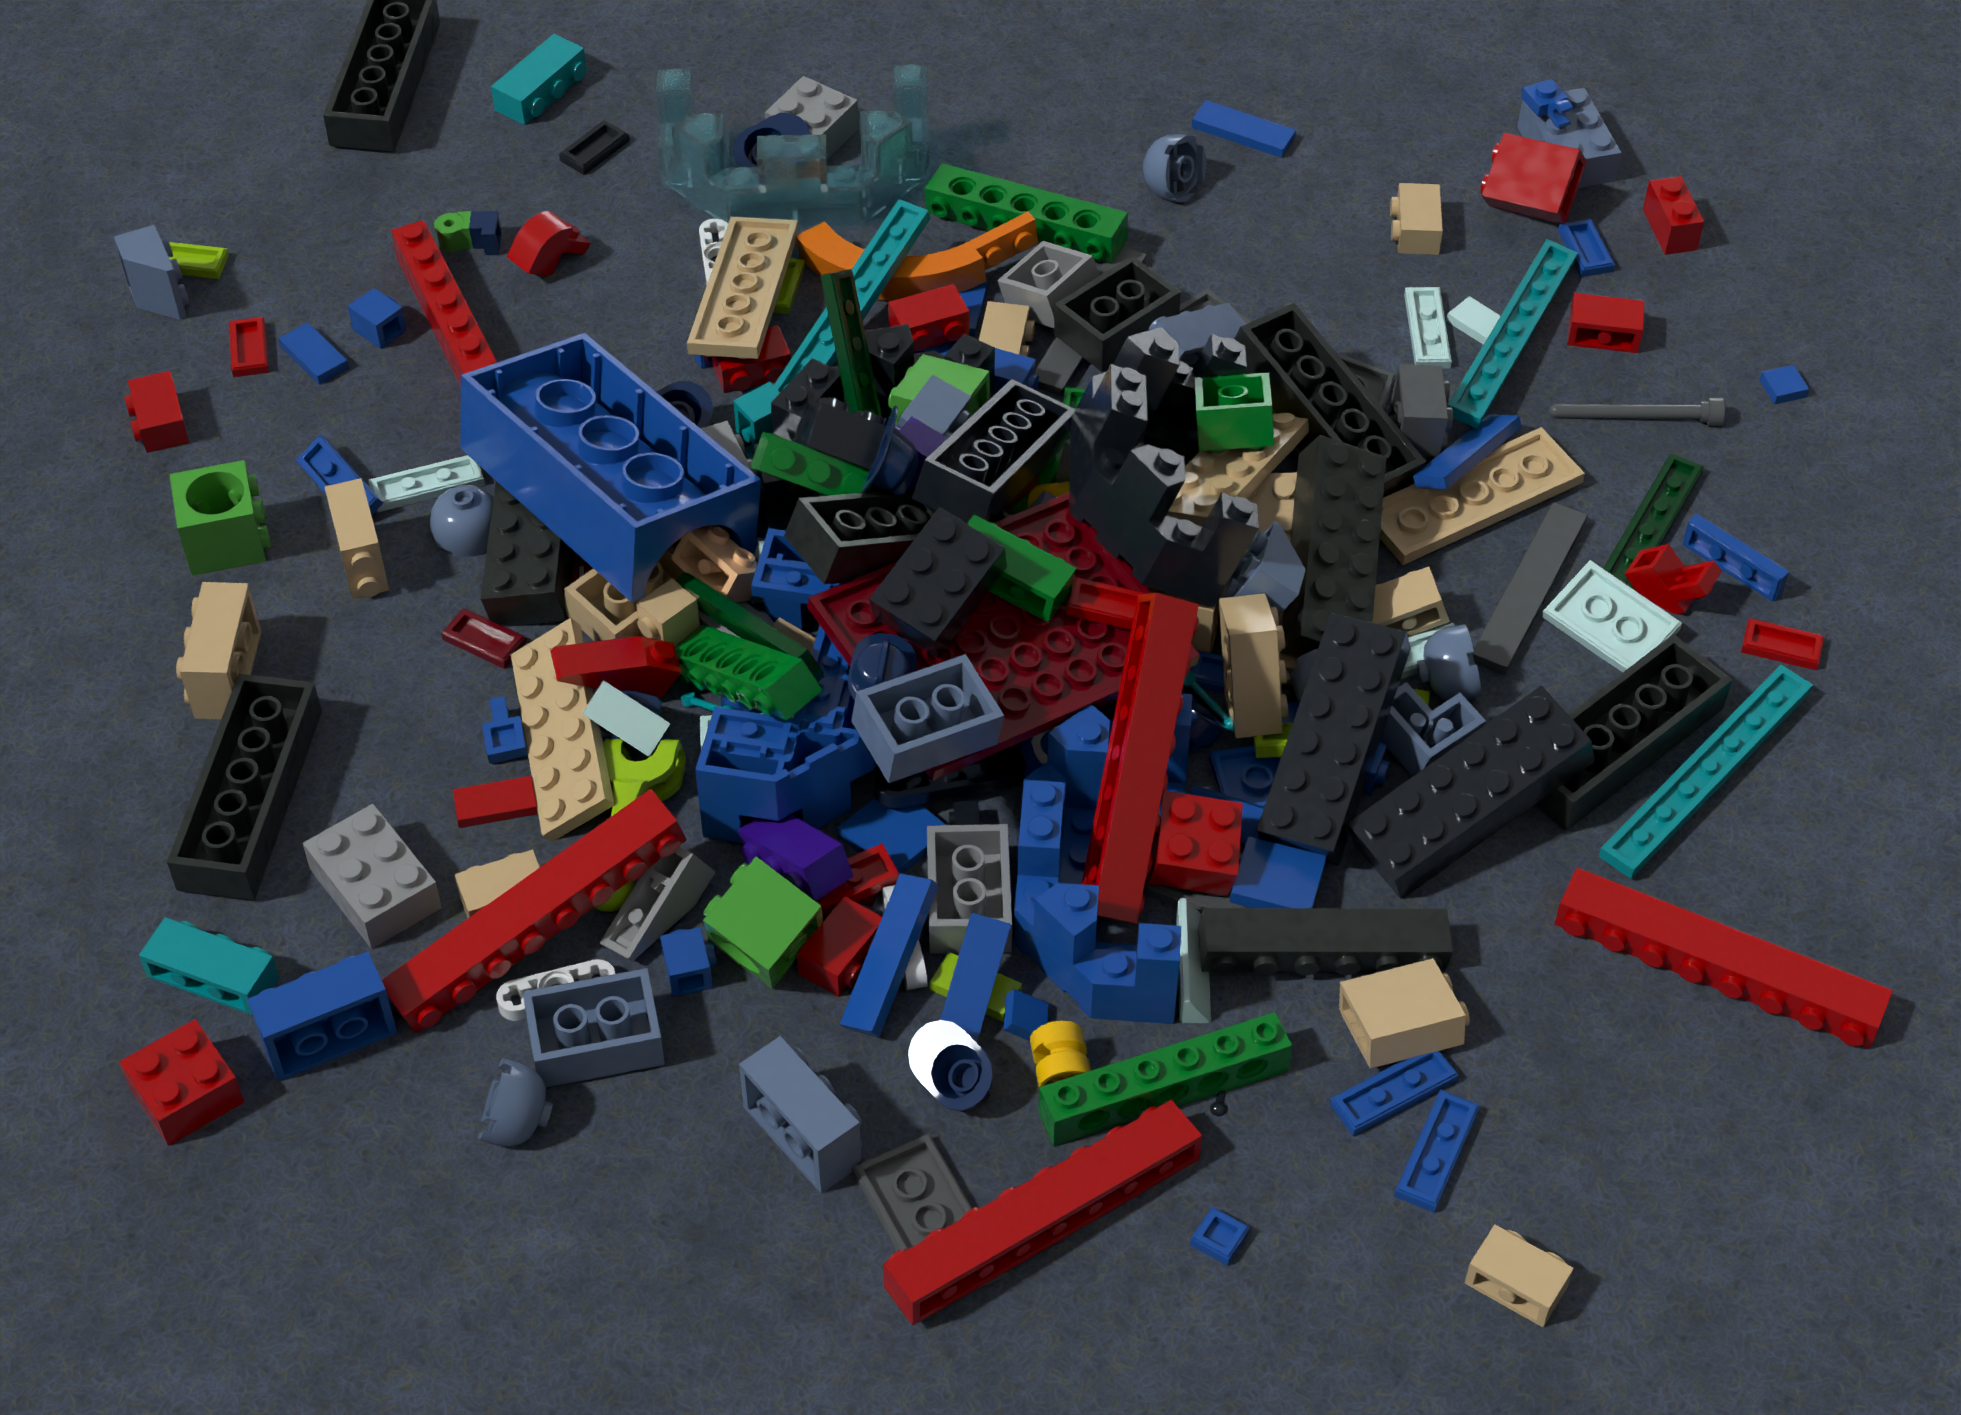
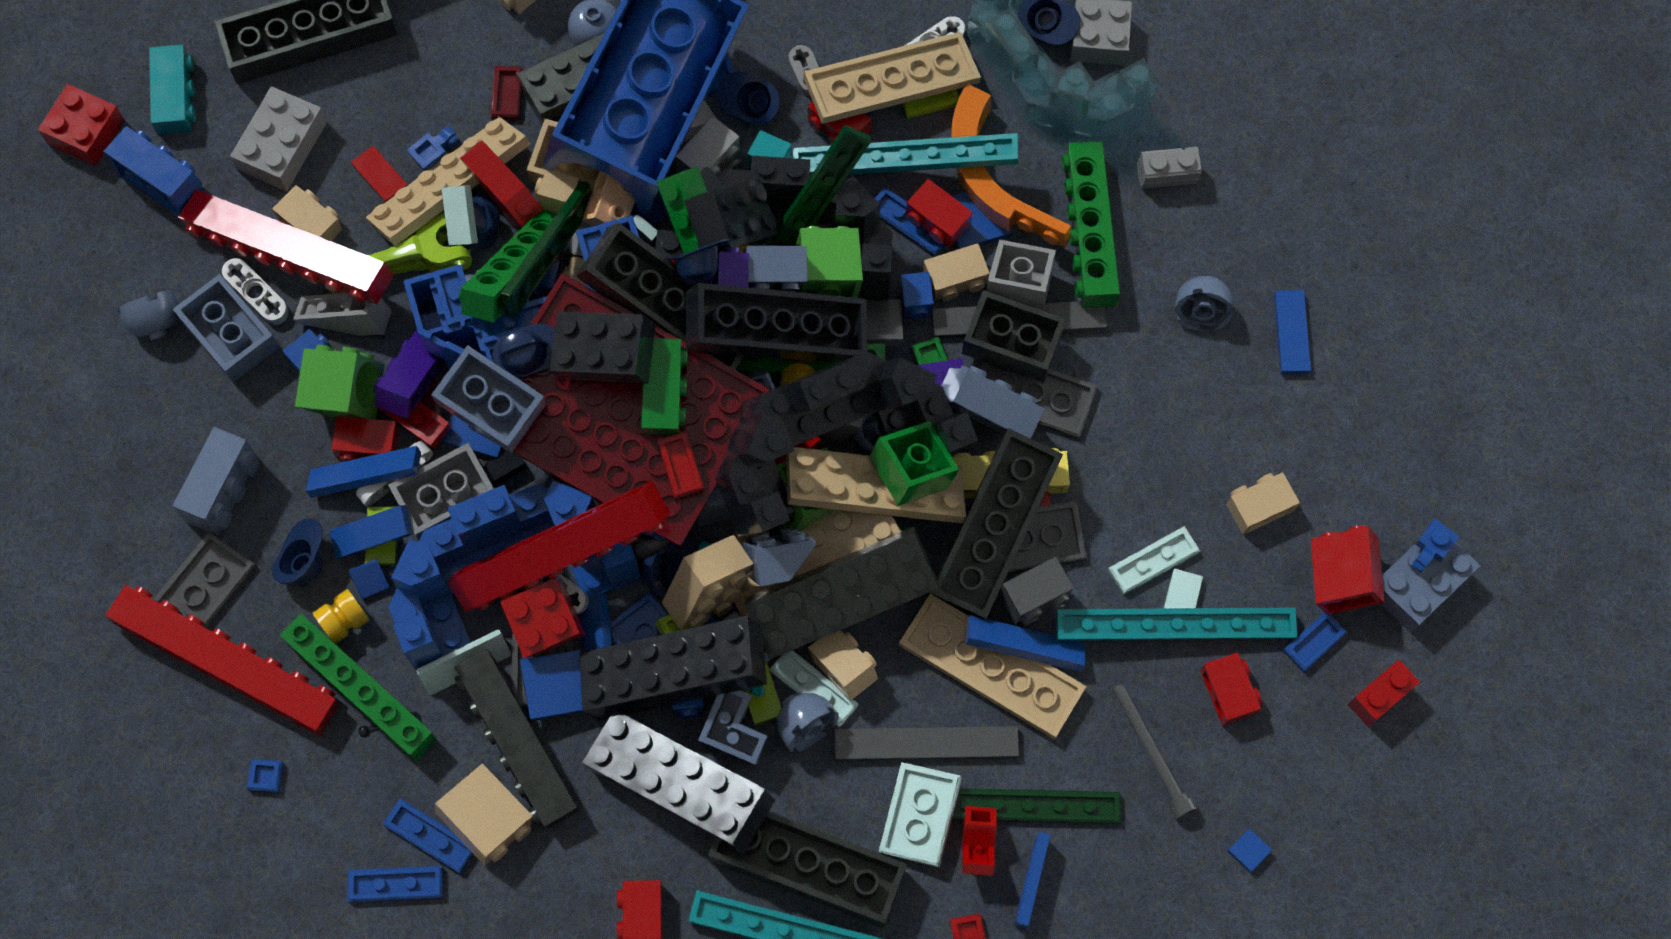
camera: 60 degrees right, 20 degrees up
(667, 367) = (796, 66): none -> light grey beam
(1004, 134) = (1169, 167): none -> light grey brick

